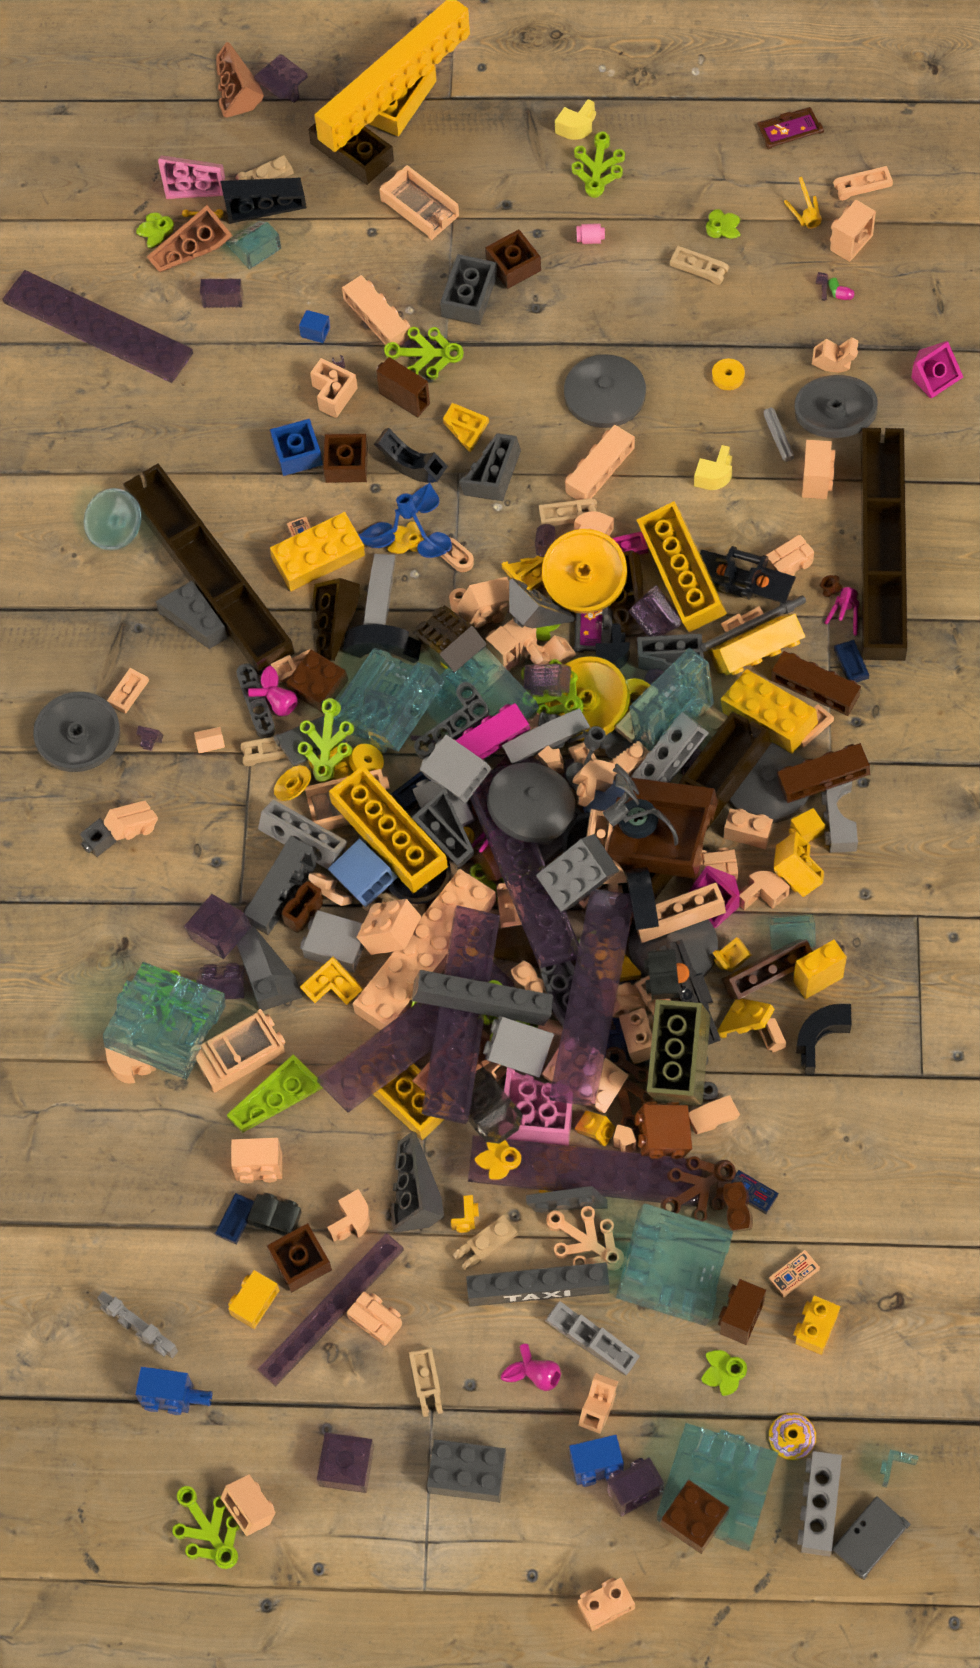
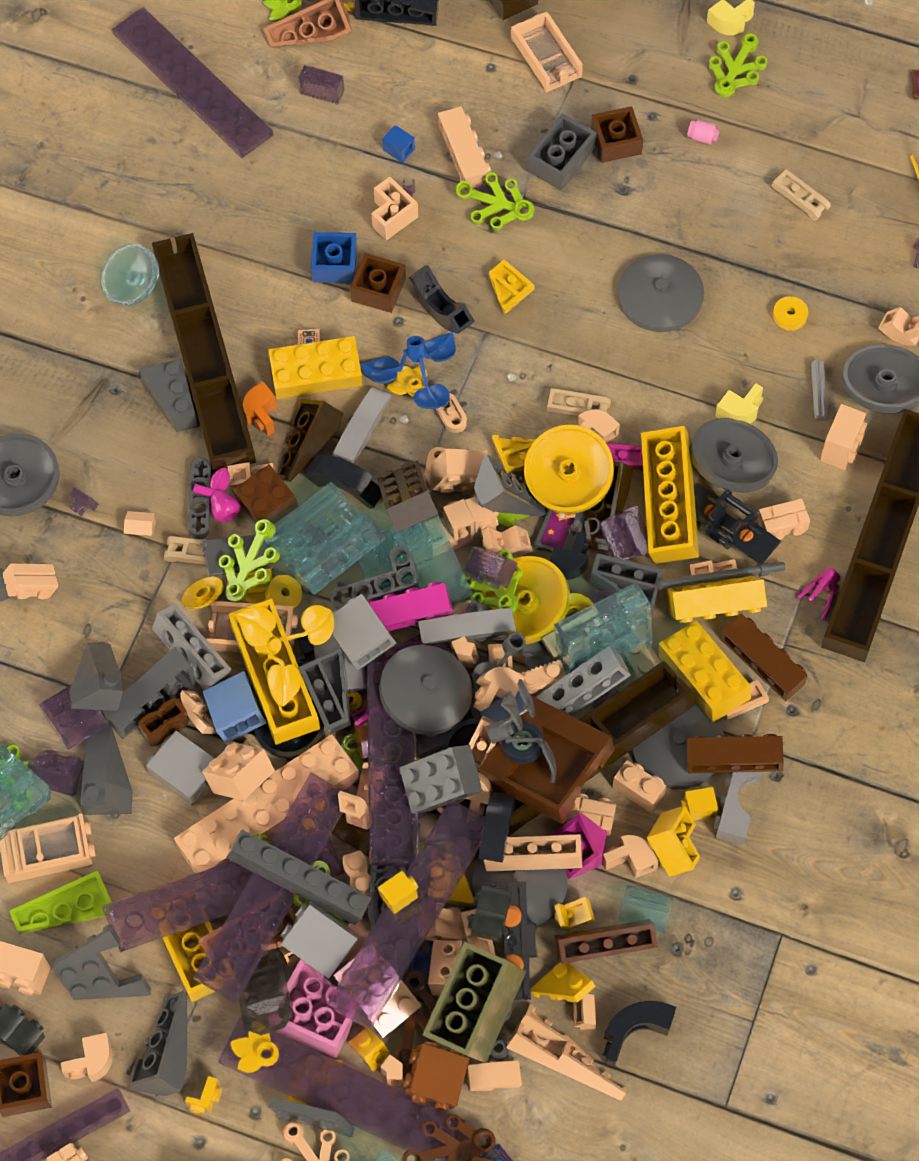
camera: 15 degrees right, 0 degrees up
(128, 690) = (80, 449): light nougat plate -> none
(230, 887) = (97, 680): none -> dark grey wedge
(255, 243) = (372, 46): clear light blue slope -> none
(277, 600) = (257, 405): none -> orange brick
(322, 1144) = (89, 975): none -> dark grey wing
(332, 976) = (168, 805): yellow plate -> none
(368, 789) = (257, 627): none -> yellow plant
(403, 387) = (460, 229): reddish brown brick -> none
(487, 1242) = (216, 1131): tan hinge -> none
(493, 471) = (520, 338): dark grey wedge -> none
(508, 925) = (355, 808): none -> light nougat slope
(542, 540) = (542, 424): beam -> none
(577, 980) = (398, 891): none -> yellow brick
(600, 463) = (627, 365): light nougat brick -> none
(722, 224) = (839, 161): lime plate -> none
(725, 514) = (733, 455): none -> dark grey dish
(751, 1075) = (543, 1044): none -> light nougat wedge
(819, 969) = (656, 959): yellow brick -> none
(830, 585) = (816, 560): reddish brown plate -> none
(851, 661) = (809, 646): dark blue tile -> none

